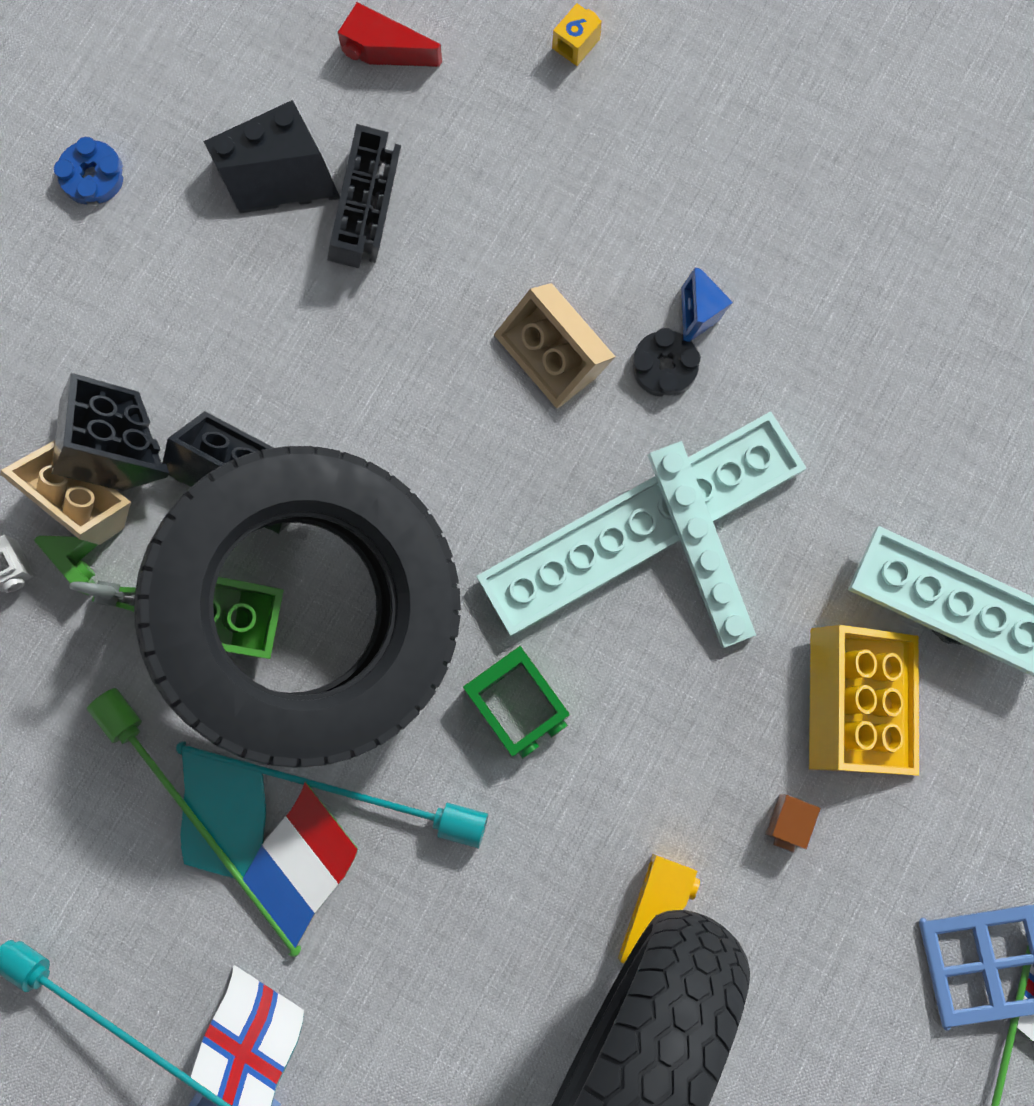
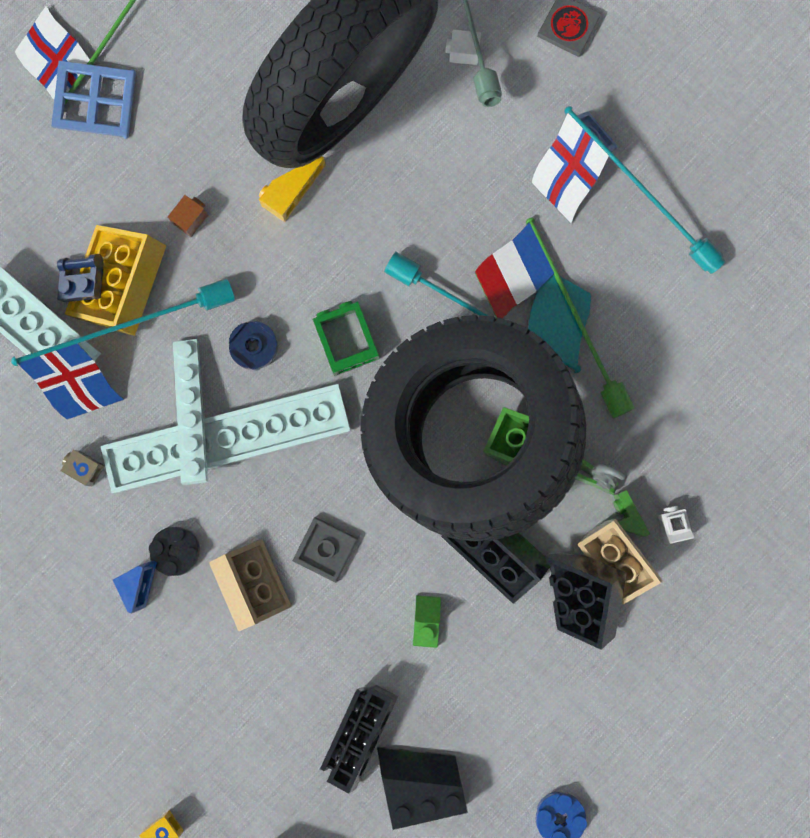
camera: 165 degrees left, 5 degrees up
(312, 360) = (426, 621): none -> bright green slope
(469, 416) = (325, 549): none -> dark grey tile
(662, 652) = (250, 332): none -> dark blue plate
(821, 434) = (81, 467): none -> dark tan brick
(868, 539) = (73, 378): none -> flag
(911, 676) = (80, 286): none -> dark blue plate

